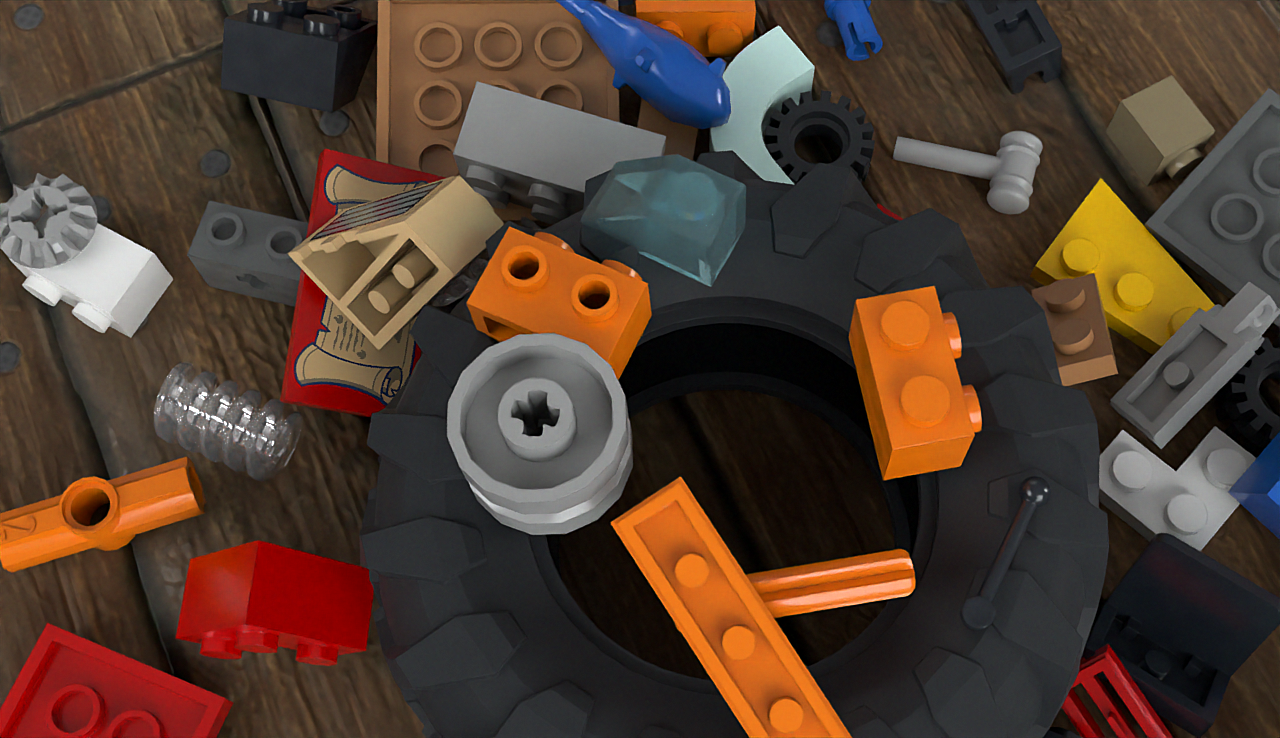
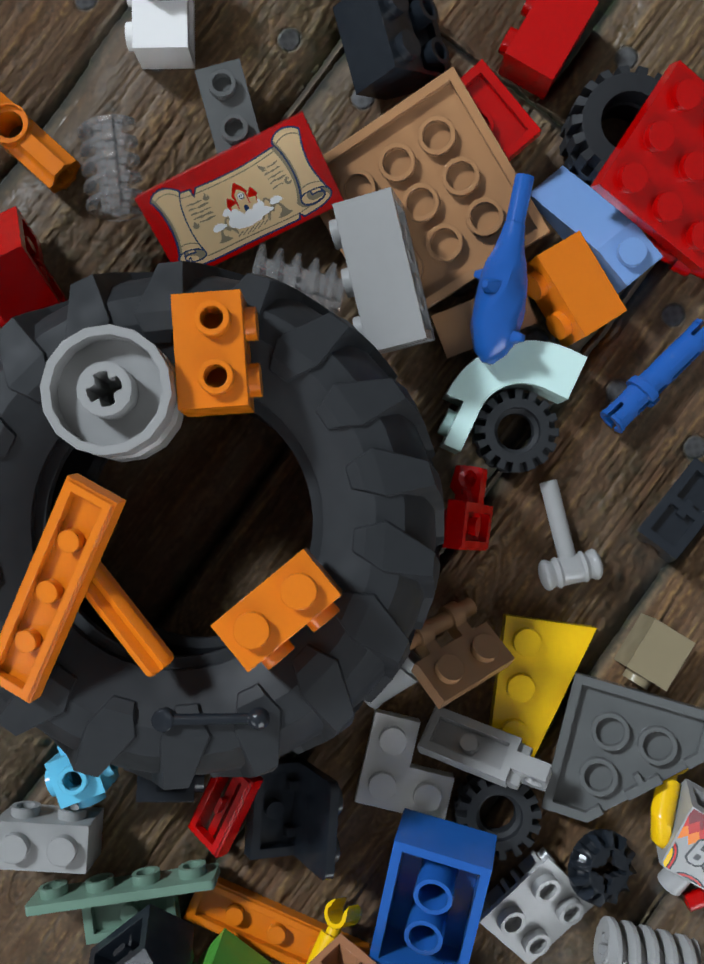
camera: 55 degrees right, 20 degrees up
(397, 253) = (245, 211): tan wedge -> none
(672, 213) = (320, 383): clear light blue slope -> none

